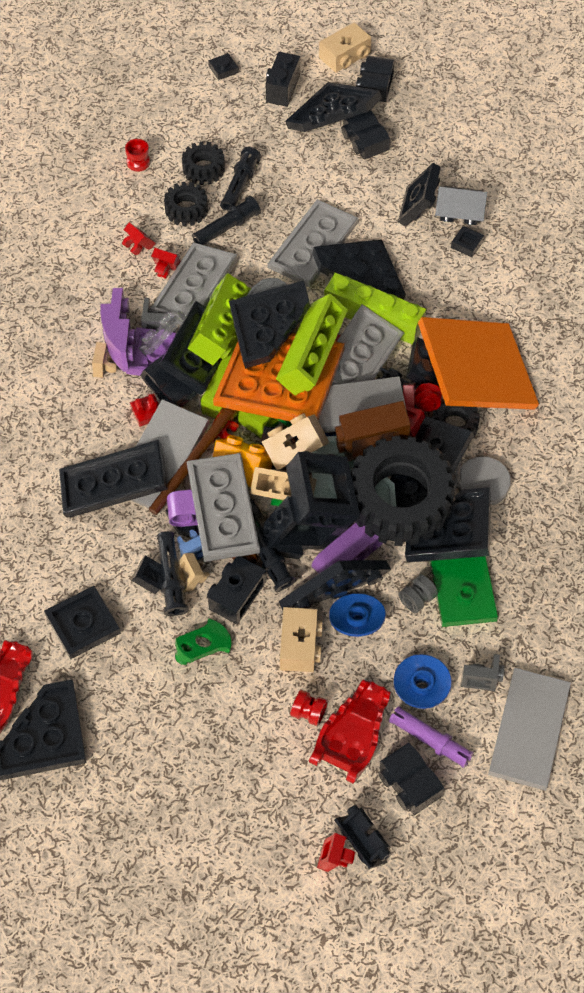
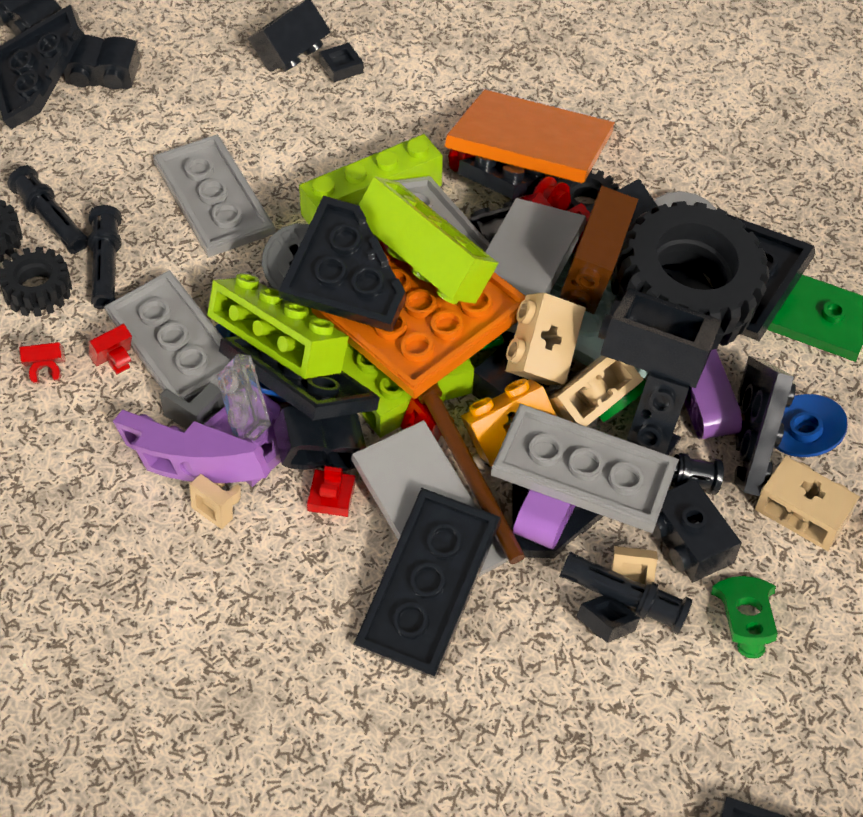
camera: 60 degrees left, 5 degrees down
(82, 622) = (633, 740): black plate -> none
(191, 546) = (598, 542): medium blue tile -> none
(361, 261) = (289, 161): black plate -> none
(418, 593) = (806, 350): dark grey wheel -> none
(419, 195) = (247, 58): black plate -> none

